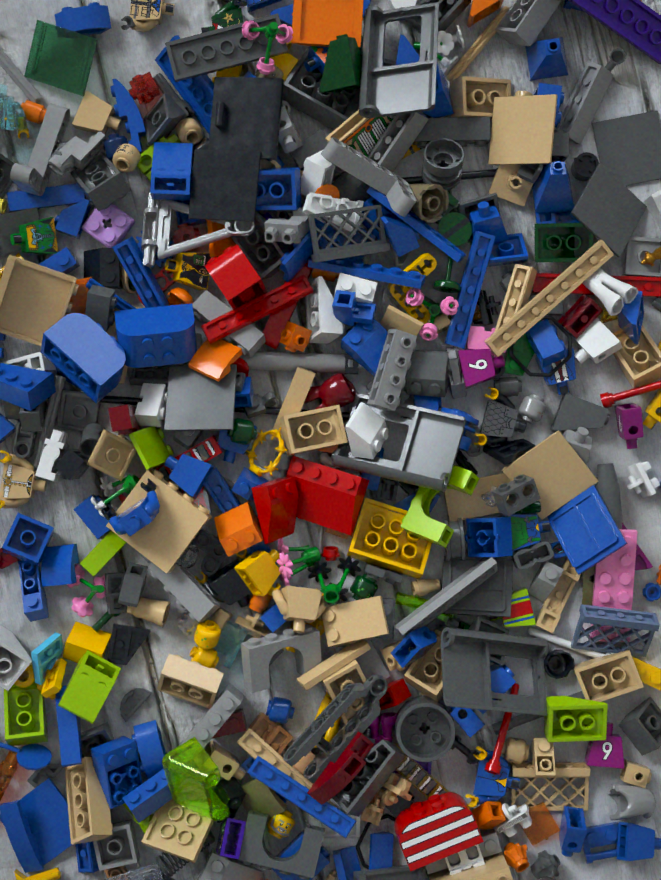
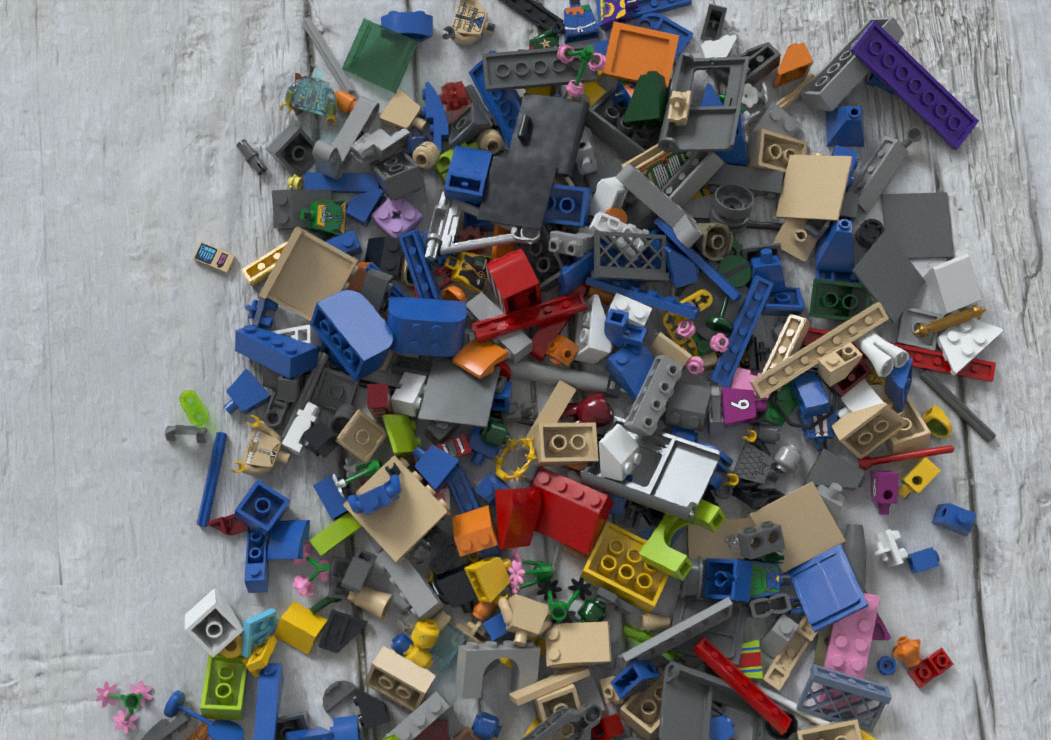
camera: 10 degrees right, 10 degrees down
(89, 686) = (296, 667): lime slope -> none
(169, 712) = (372, 709): none -> black slope
(185, 646) = (401, 643): none -> blue piece
(330, 553) = (563, 572): red plate -> none
(375, 70) = (679, 107): none -> tan hips
(476, 64) = (777, 121): none -> light grey wing
(516, 635) = (742, 685): none -> red tile
(569, 308) = (838, 364): none -> tan slope
(605, 368) = (868, 428): none -> tan slope

